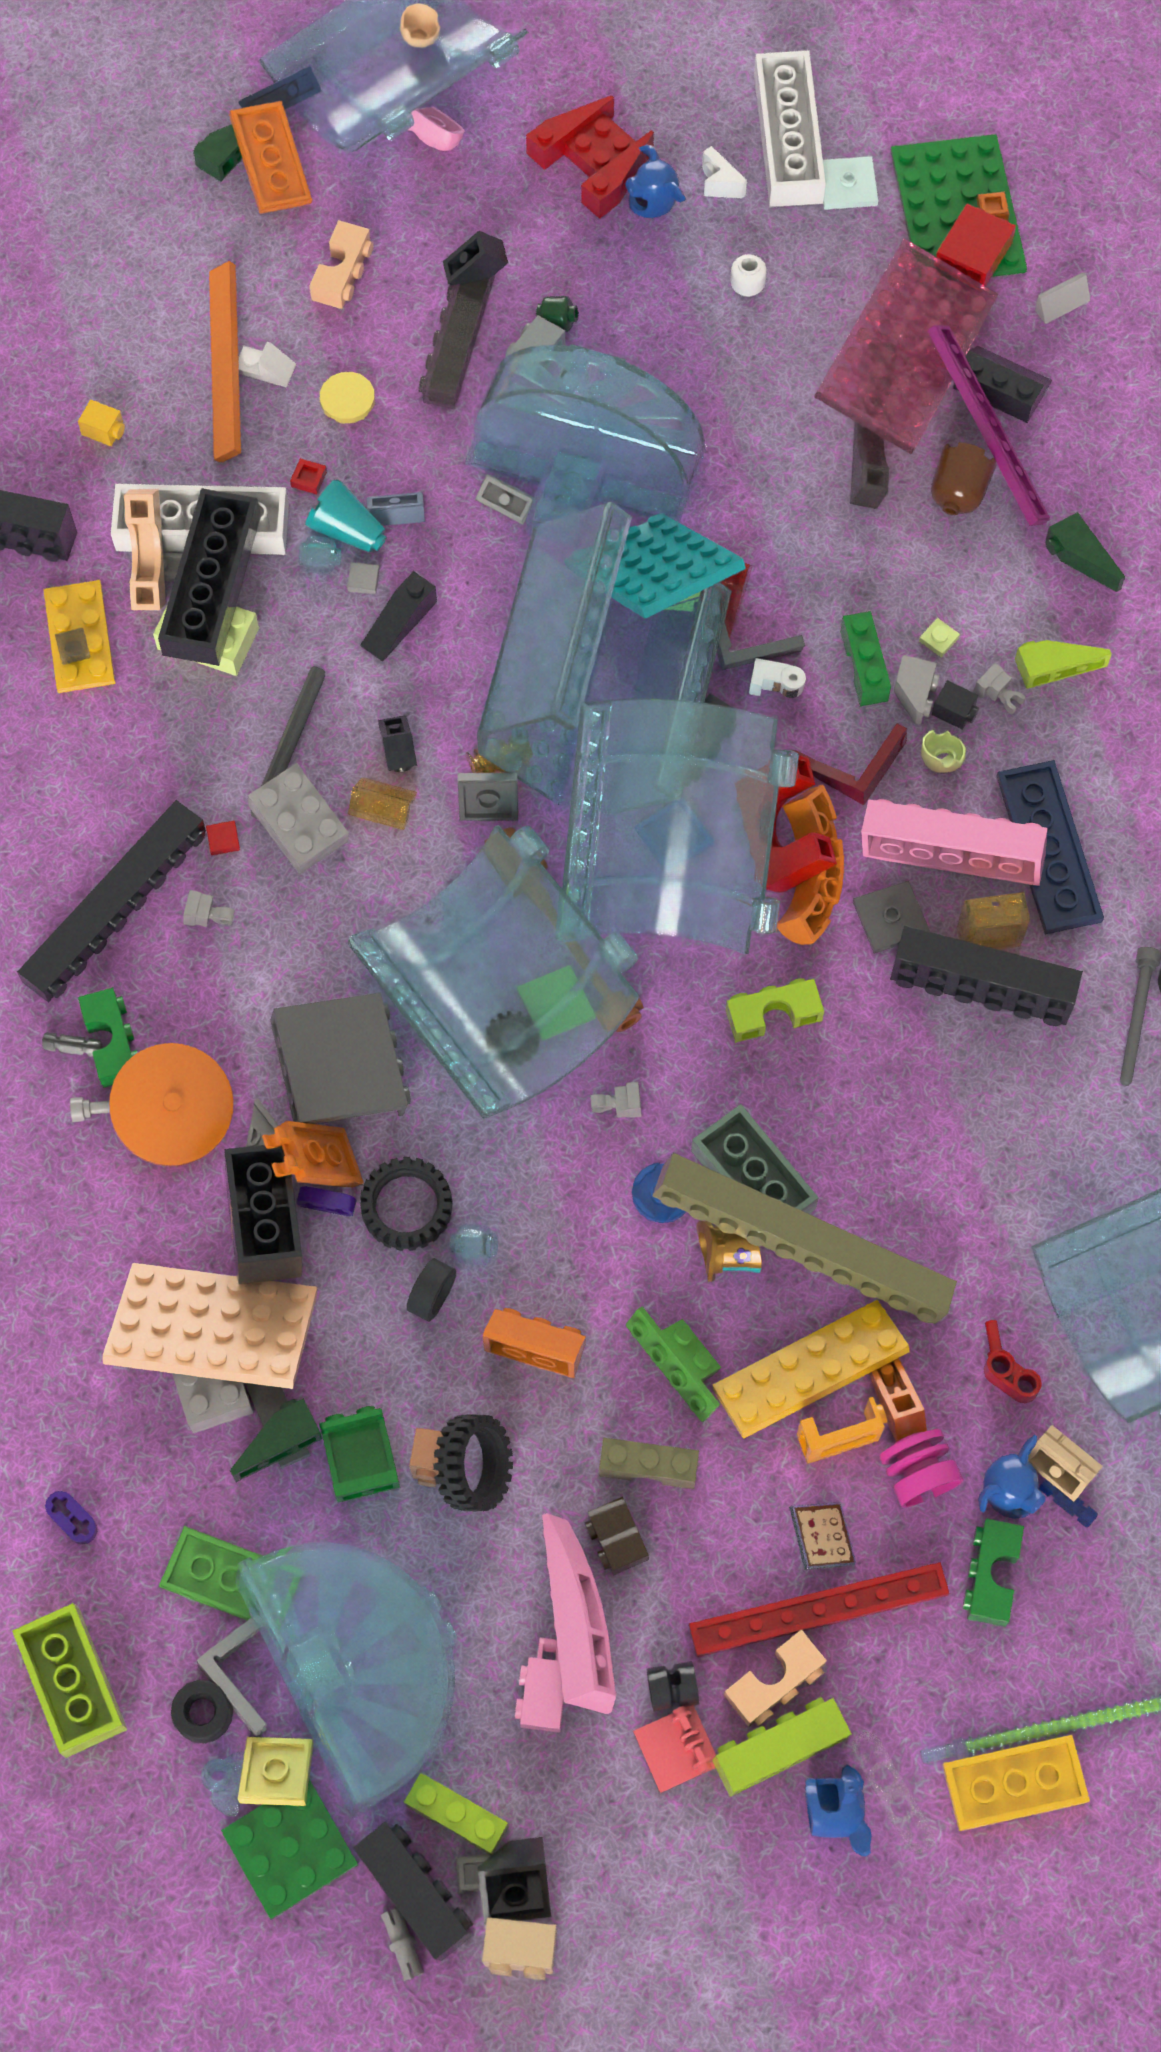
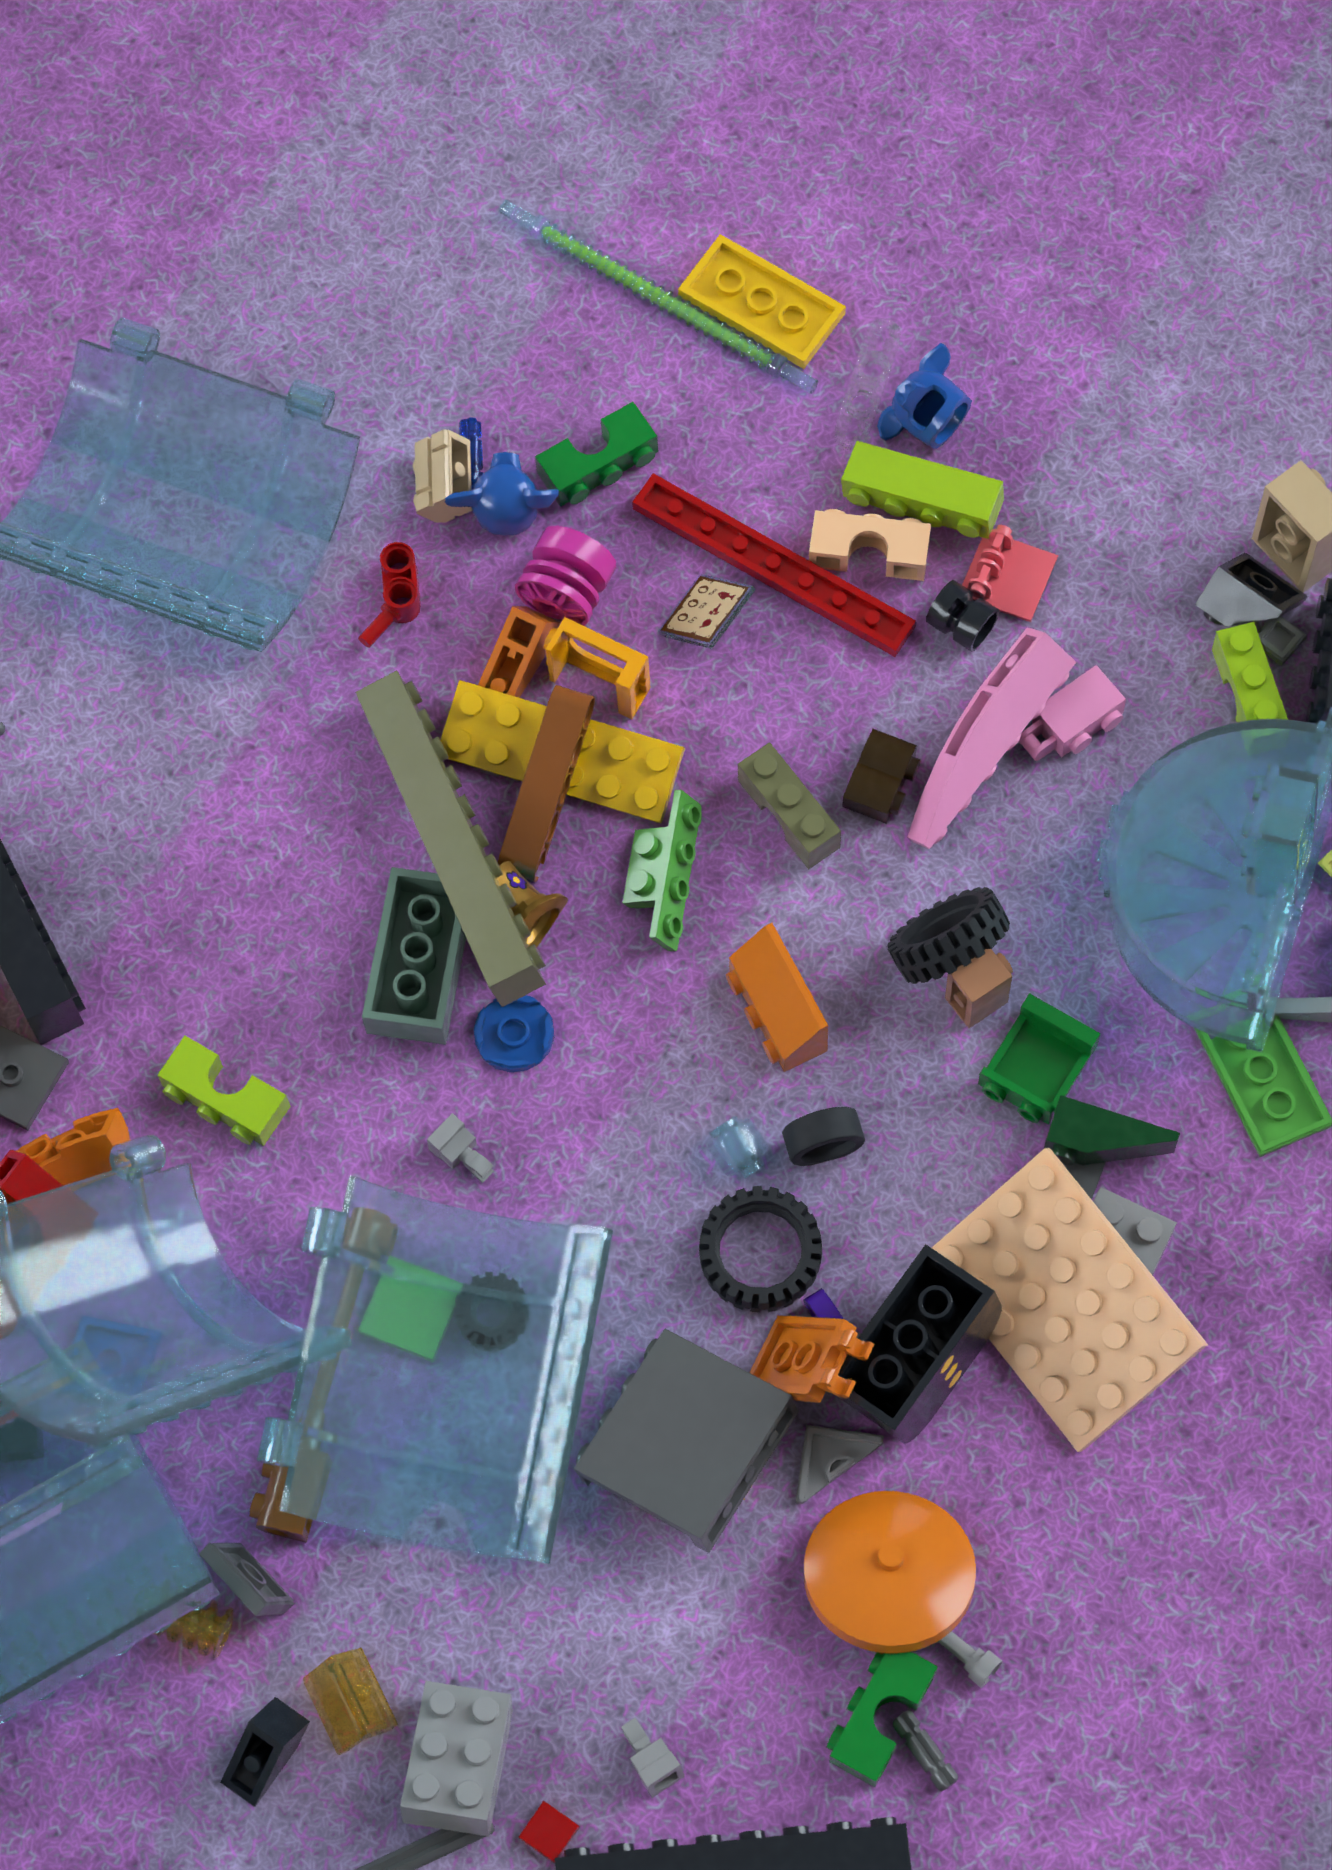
camera: 130 degrees left, 0 degrees up
(794, 1334) = (547, 780): none -> dark orange beam

